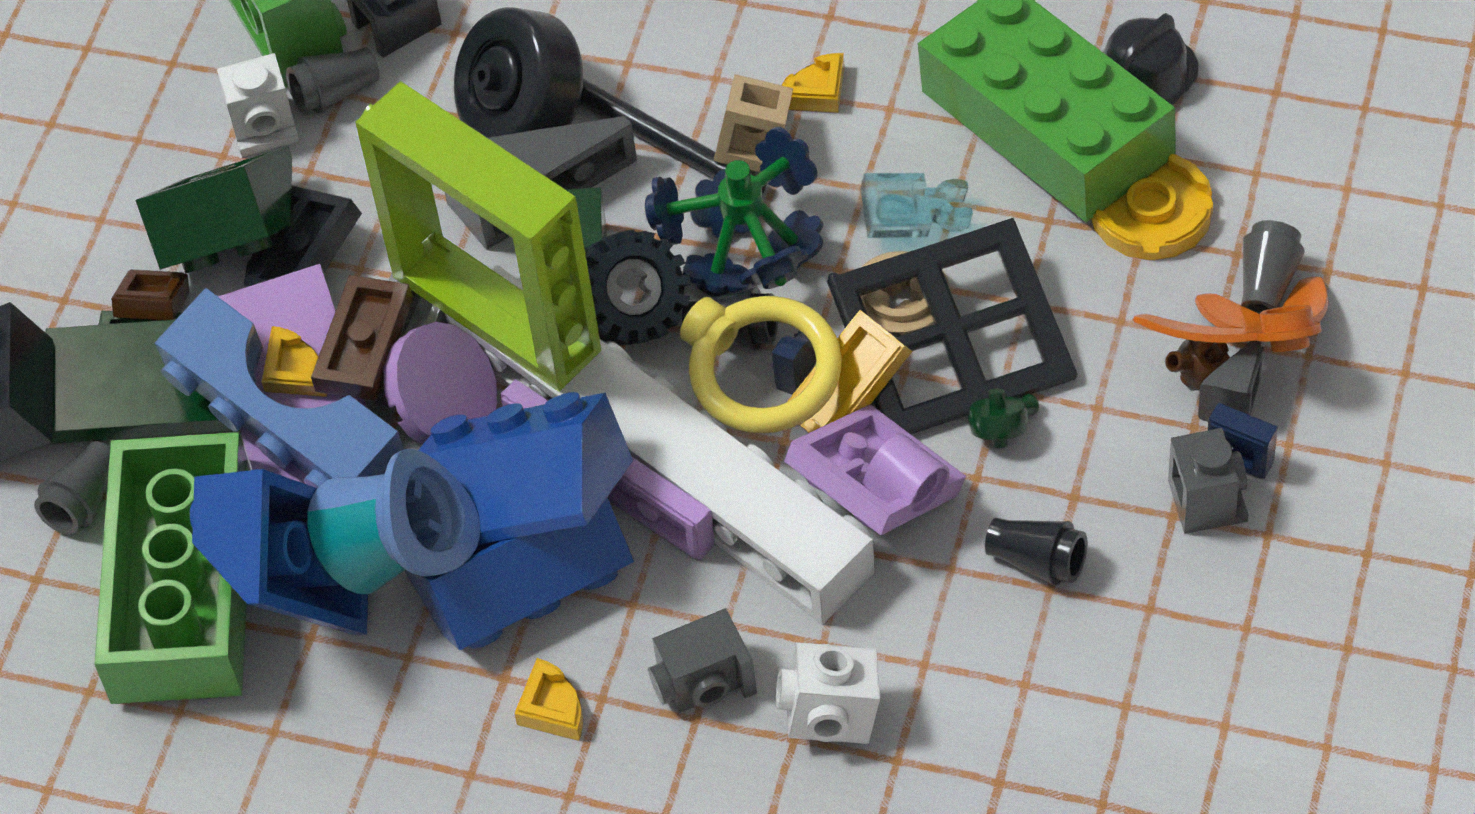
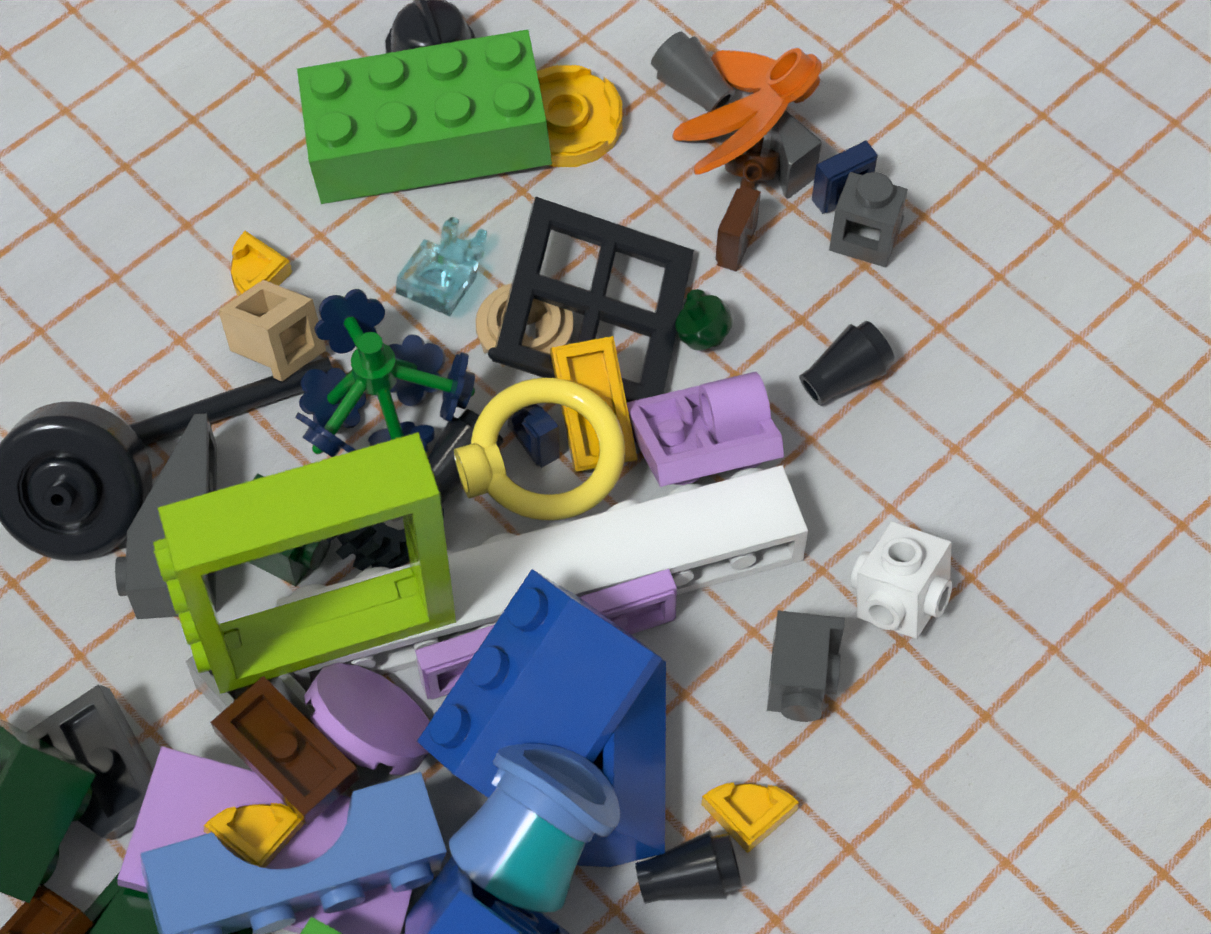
camera: 65 degrees left, 5 degrees up
(468, 687) = (691, 871): none -> black cone
(1117, 389) = (737, 227): none -> reddish brown tile

